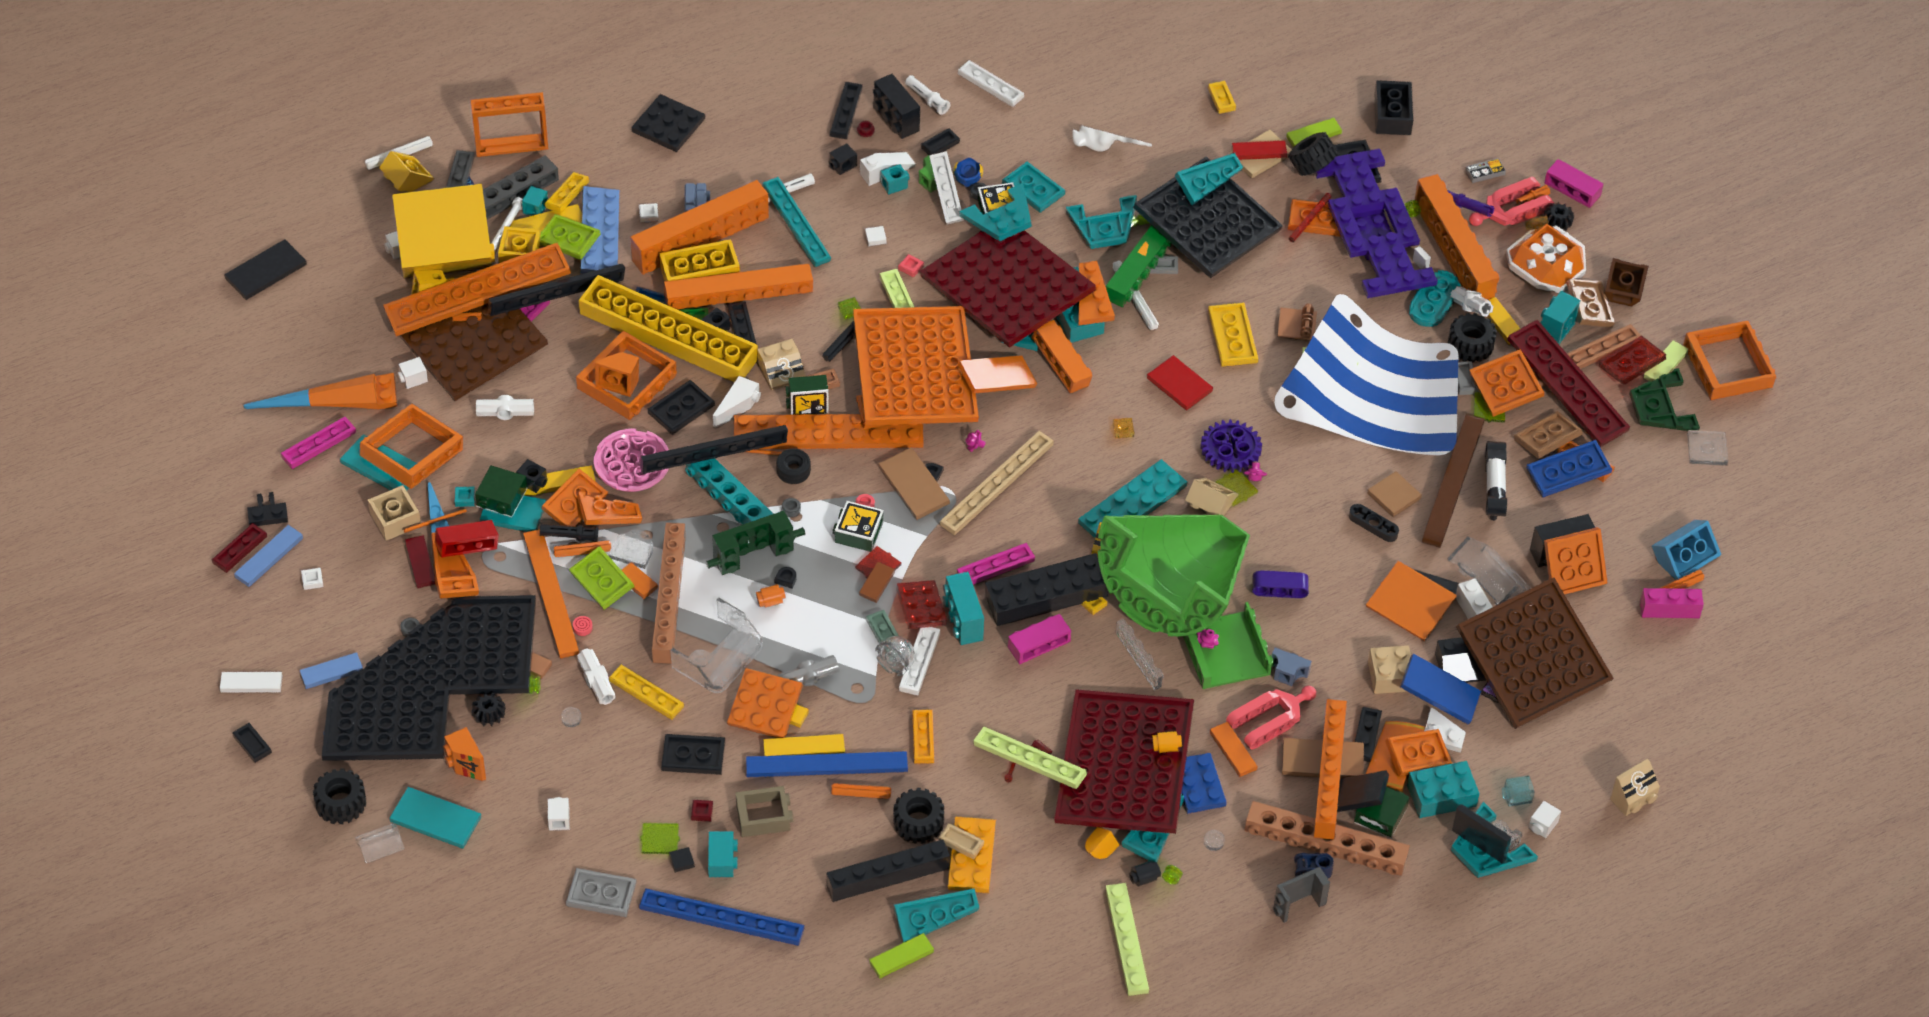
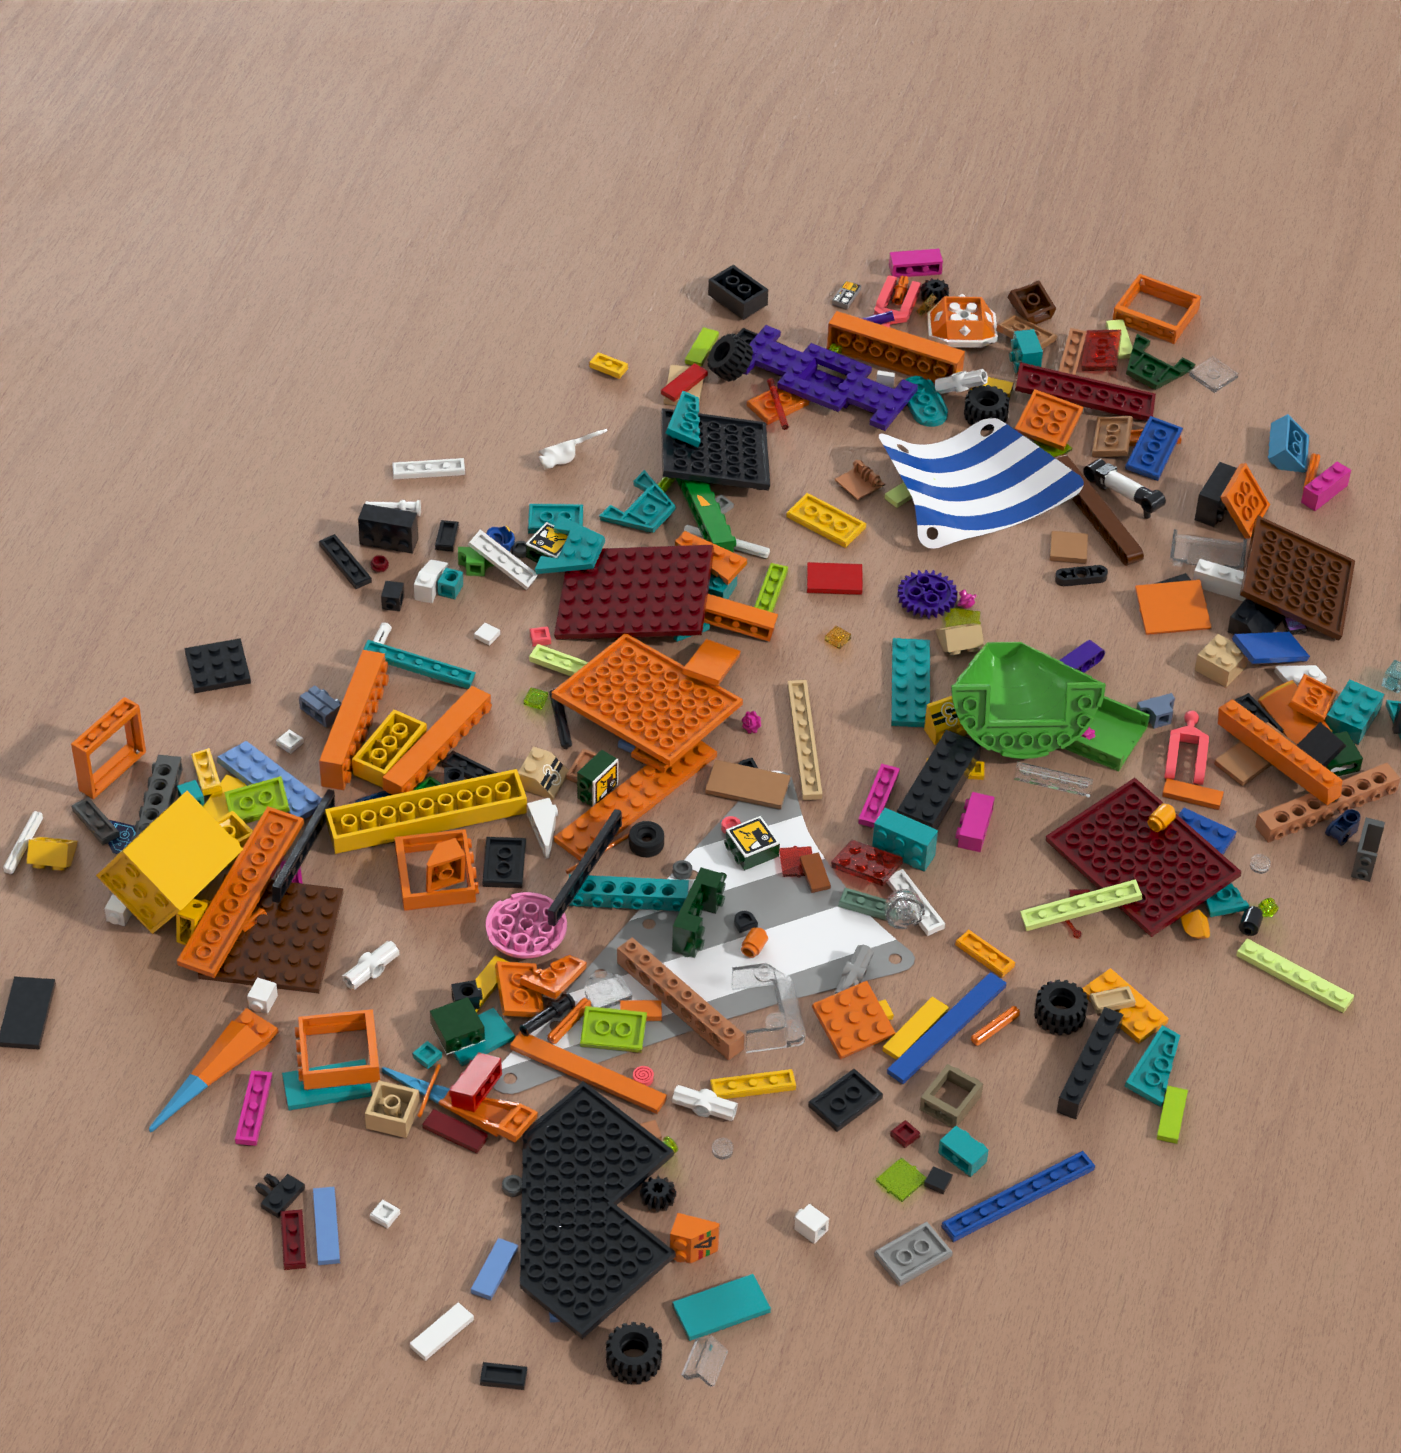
camera: 45 degrees left, 5 degrees down
(1120, 356) = (771, 587): none -> lime tile

